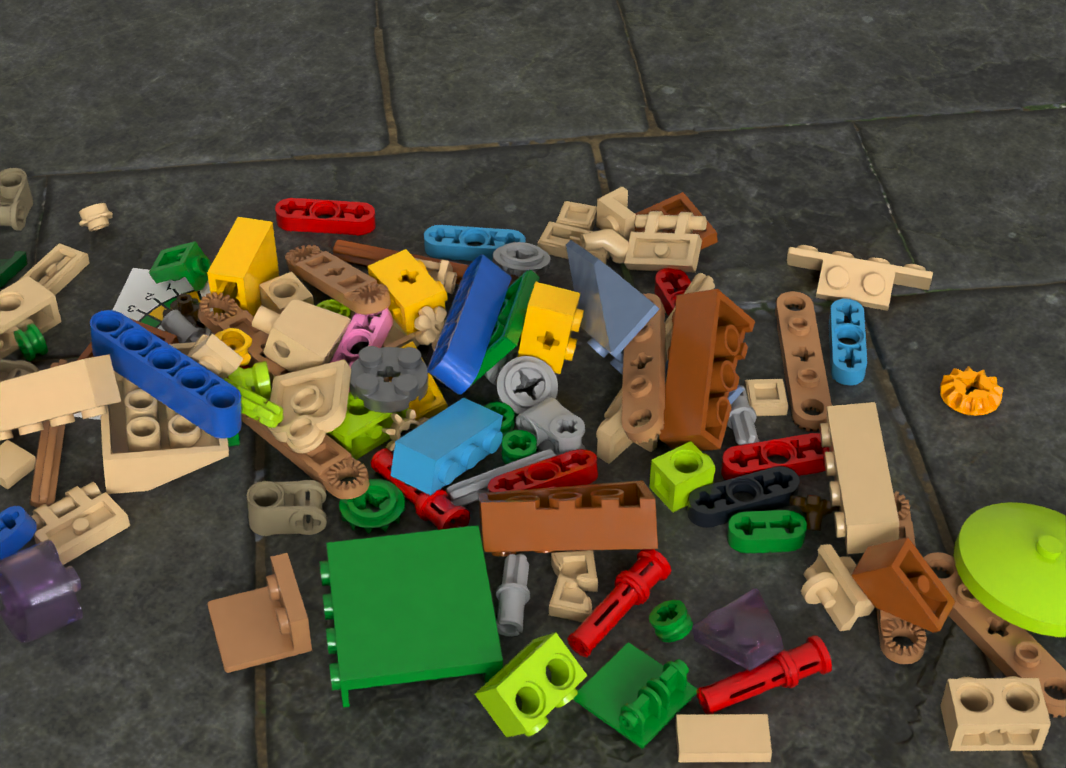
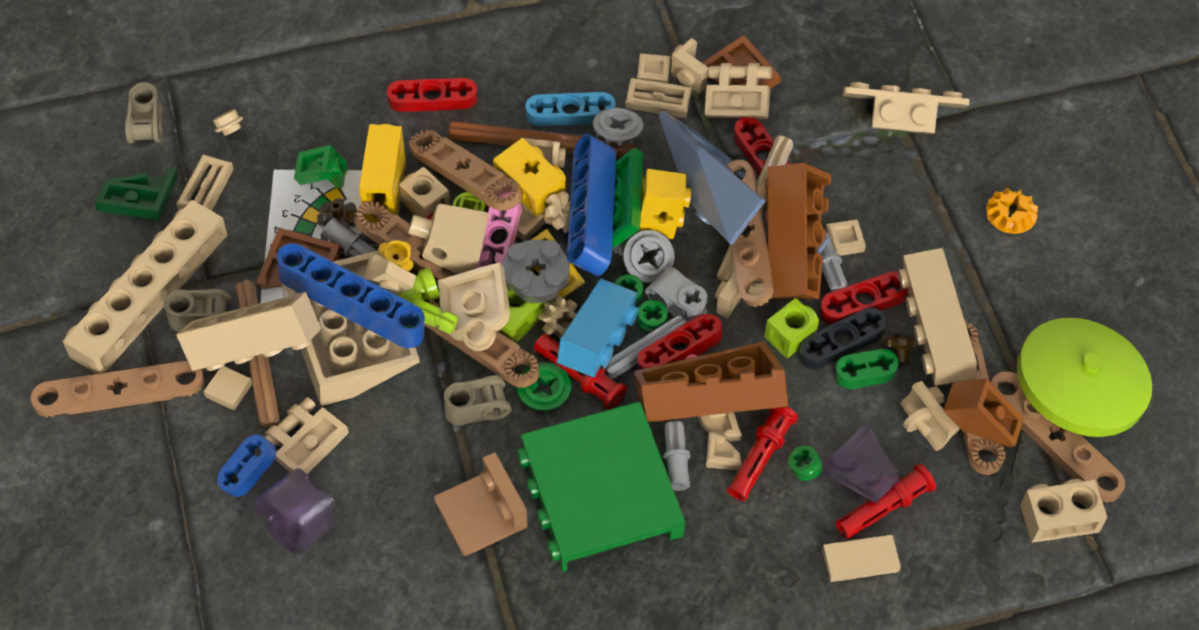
camera: 10 degrees left, 15 degrees up
(30, 342) = (211, 264): green bush -> none
(528, 679) = (710, 538): lime brick -> none
(606, 239) = (686, 94): tan arm -> none
(637, 694) = (788, 530): green hinge -> none
(804, 380) = (874, 215): medium nougat piece -> none
(840, 351) = (899, 184): dark azure beam -> none

